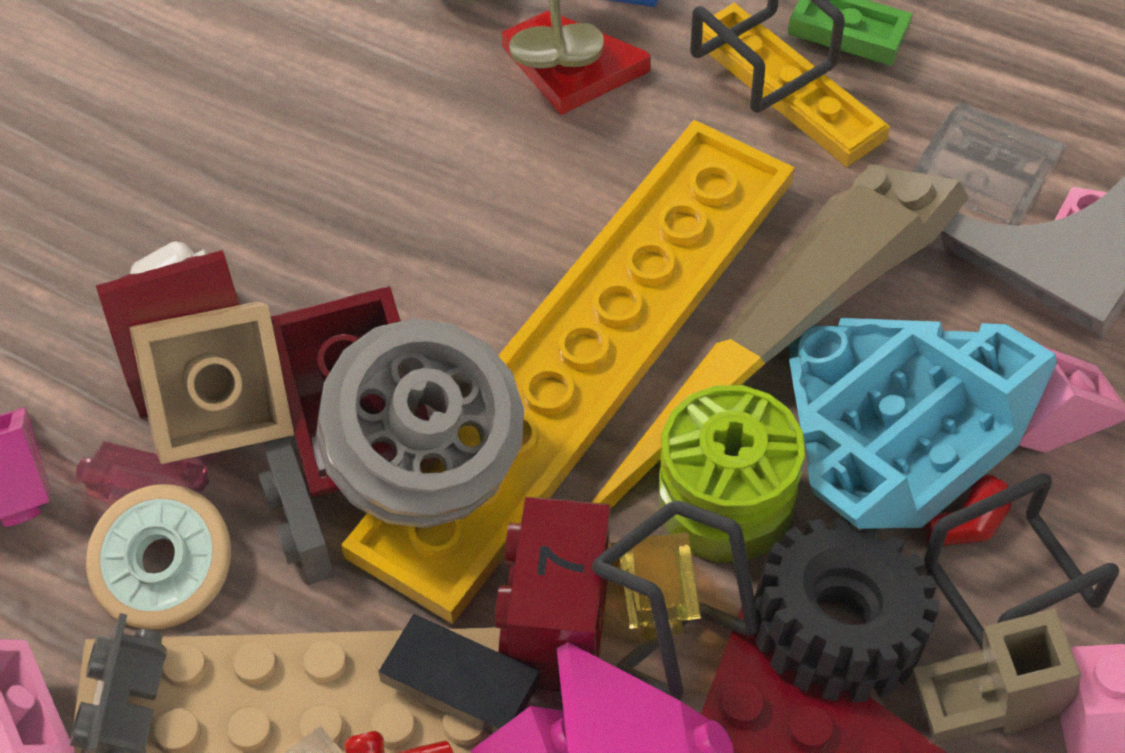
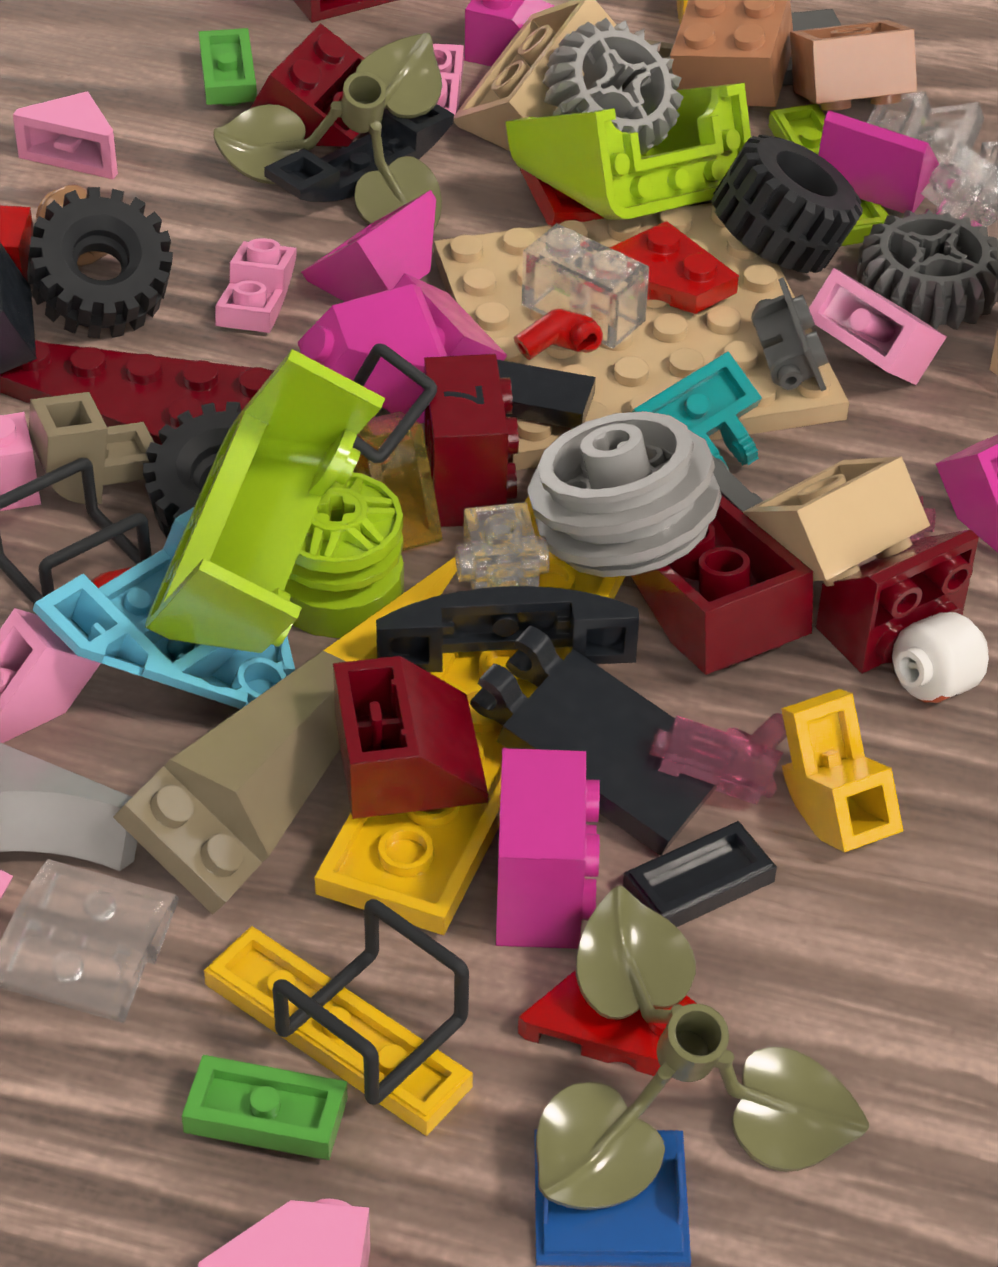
camera: 165 degrees right, 10 degrees down
(191, 580) = (805, 453): wheel -> none
(276, 611) = (712, 402): none -> teal hinge
(328, 176) = (831, 780): none -> yellow brick
(414, 208) = (730, 759): none -> clear pink piece
(471, 151) = (702, 875): none -> black tile
(518, 246) = (596, 713): none -> black tile
(565, 402) = (500, 548): none -> clear brick
(583, 345) = (497, 616): none -> black slope
(601, 129) = (546, 848): none -> dark pink brick
(702, 222) = (404, 739): none -> dark red slope
(840, 417) = (258, 509): none -> lime windscreen

